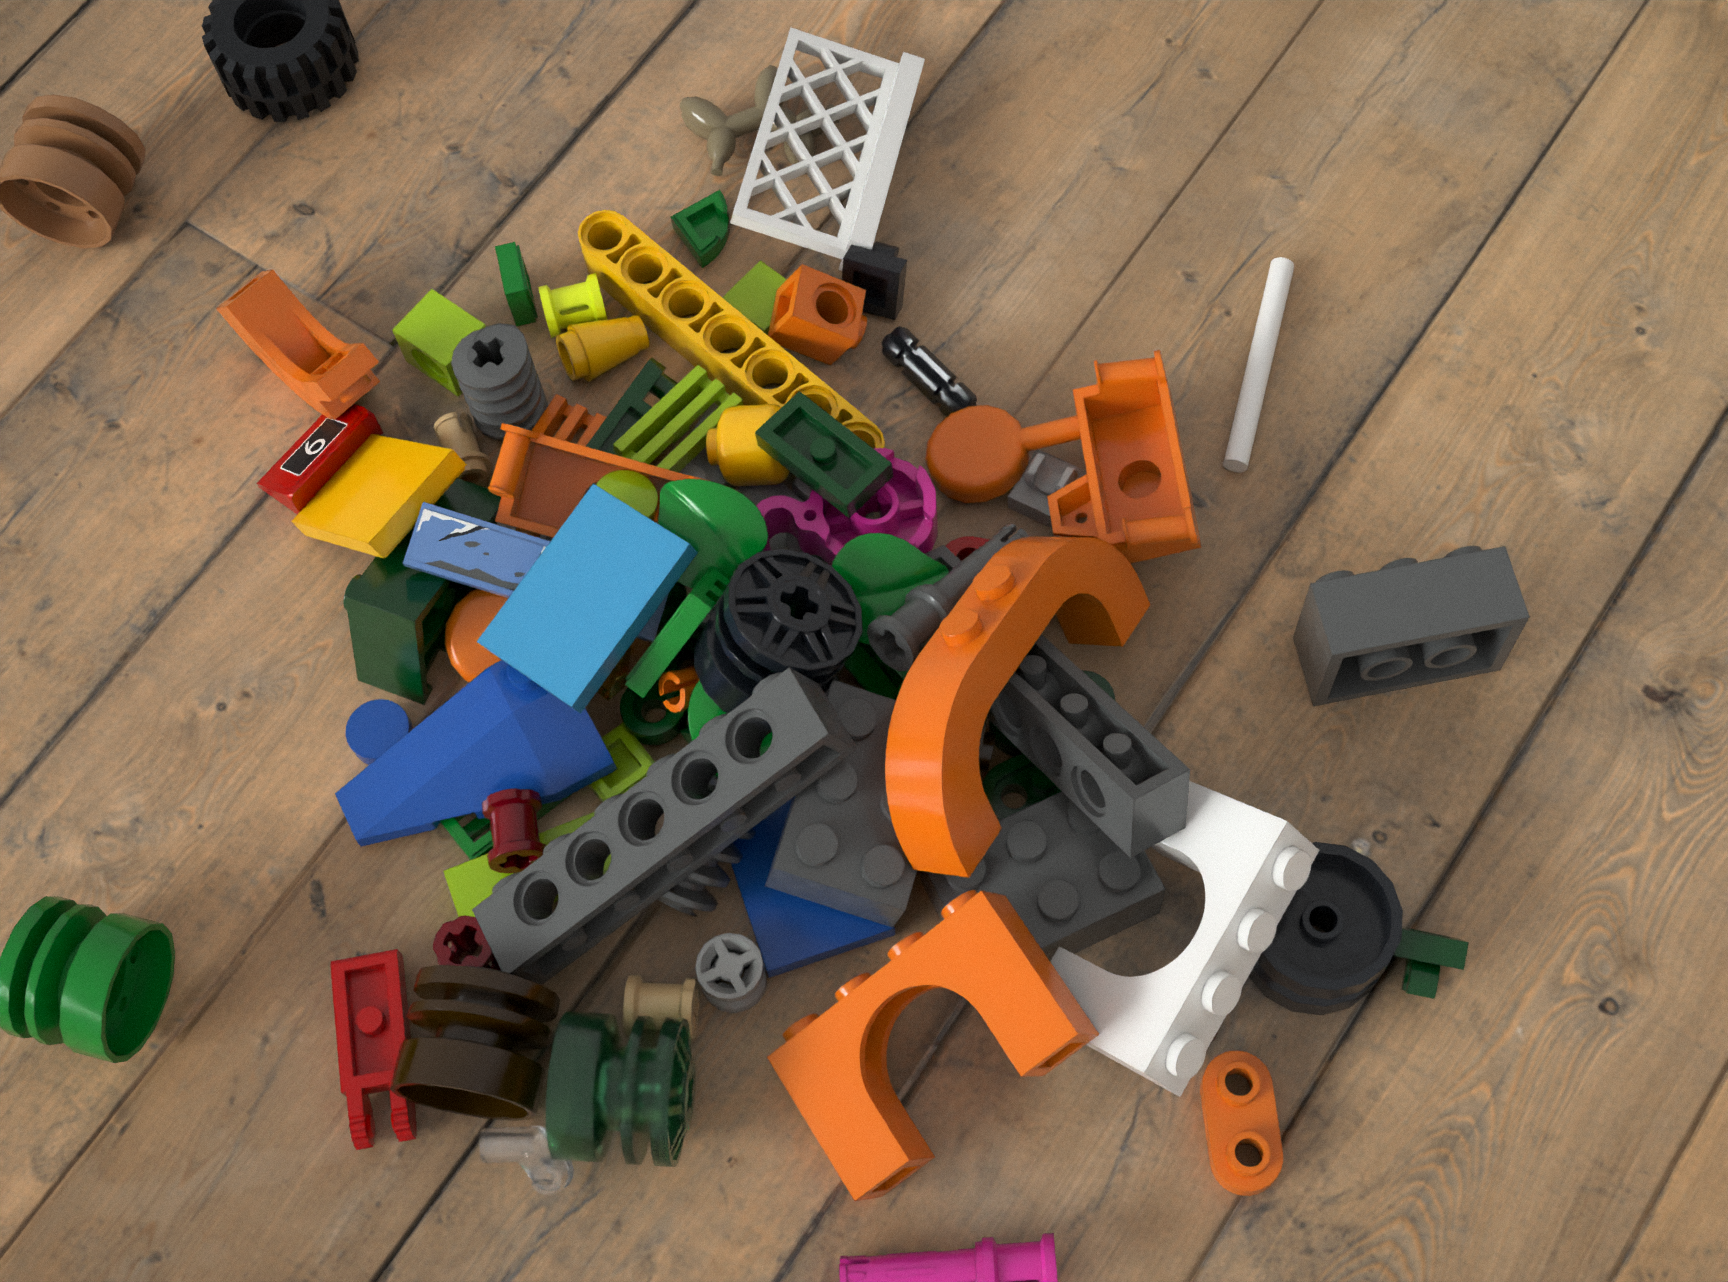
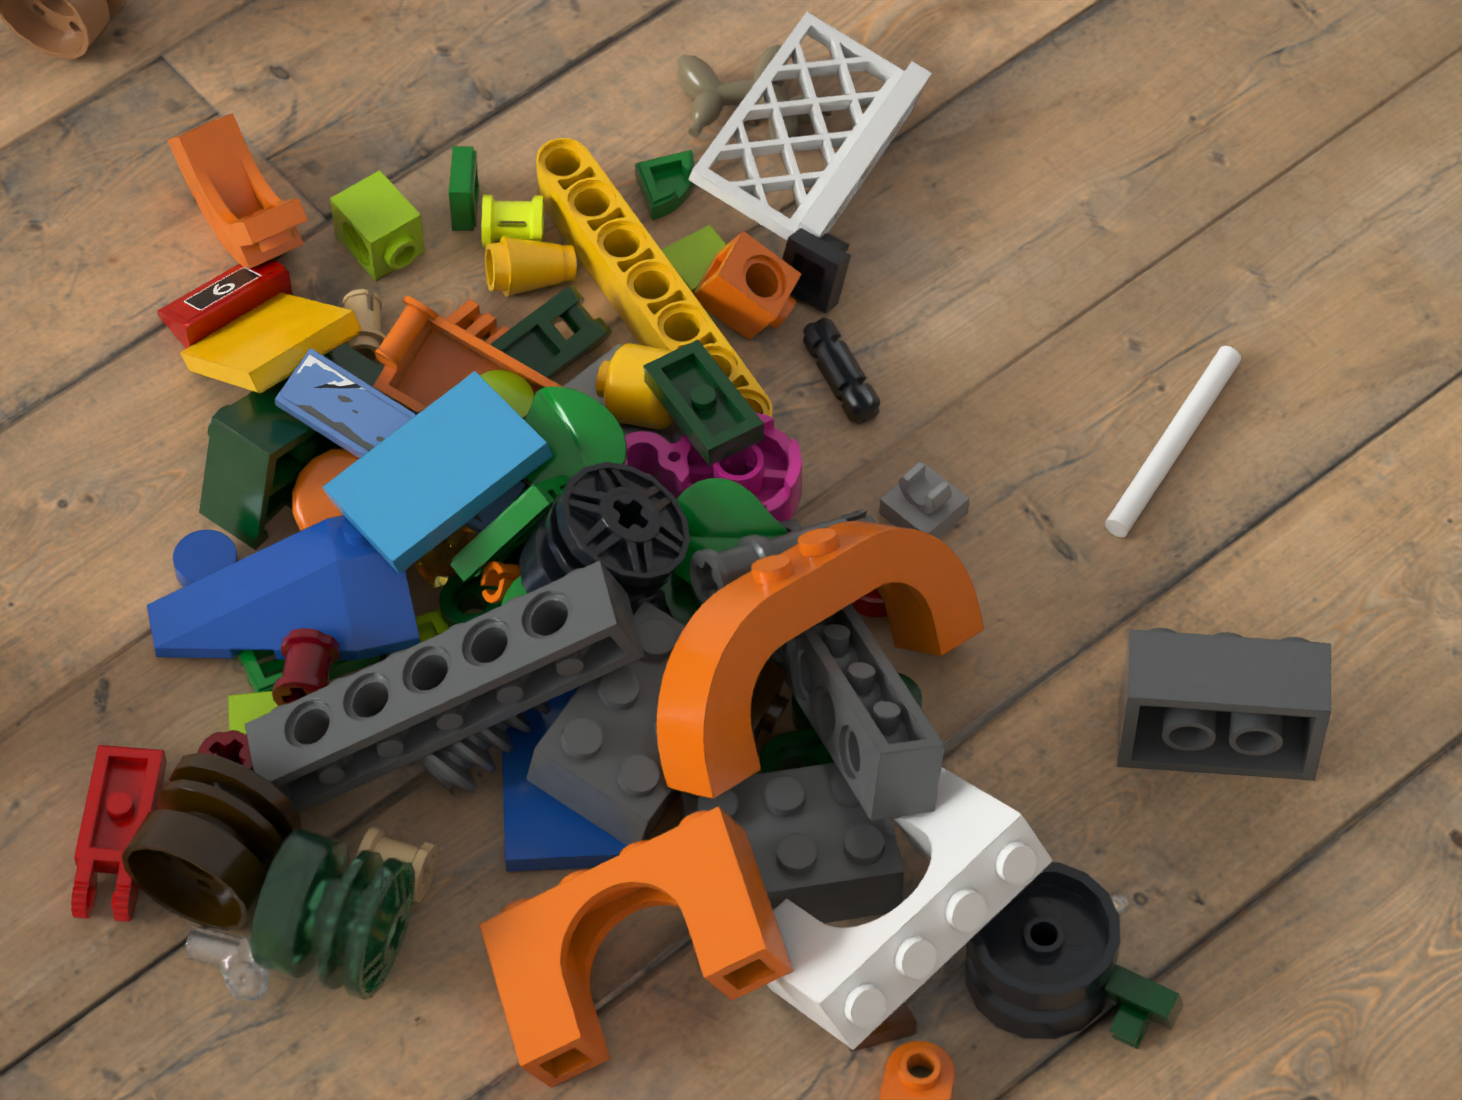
camera: 10 degrees right, 10 degrees down
(499, 379) = (418, 262): dark grey piece -> none
(663, 411) = (574, 343): lime tile -> none
(725, 959) = (471, 836): light grey wheel -> none
(1131, 450) = (1007, 485): orange piece -> none

